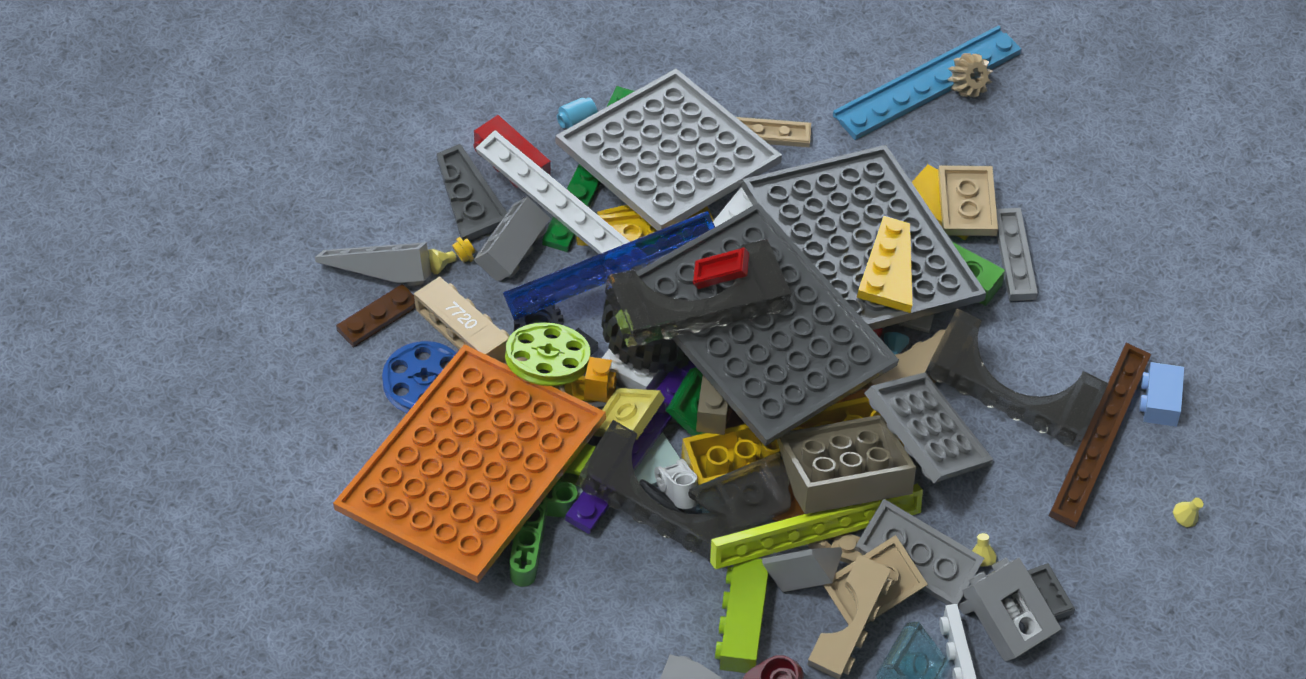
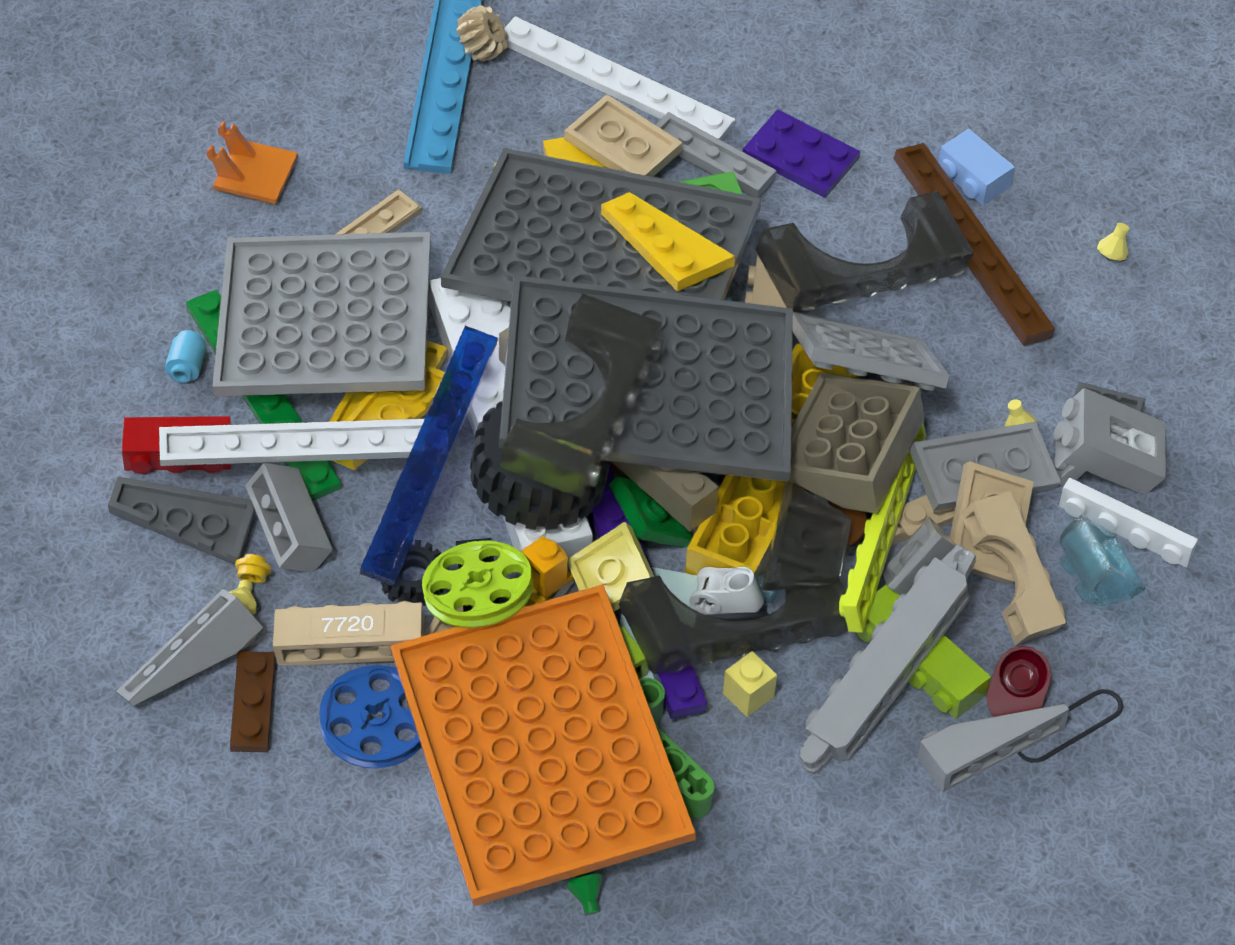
camera: 50 degrees left, 0 degrees up
(405, 560) = (586, 890): none -> green rock
(627, 541) = (749, 683): none -> light yellow brick
(708, 596) = (888, 660): none -> light grey hinge
(721, 268) = (576, 354): red tile -> none
(749, 47) = (250, 167): none -> orange plate
(1020, 168) = (613, 78): none -> white plate
(1072, 298) = (802, 153): none -> dark purple plate

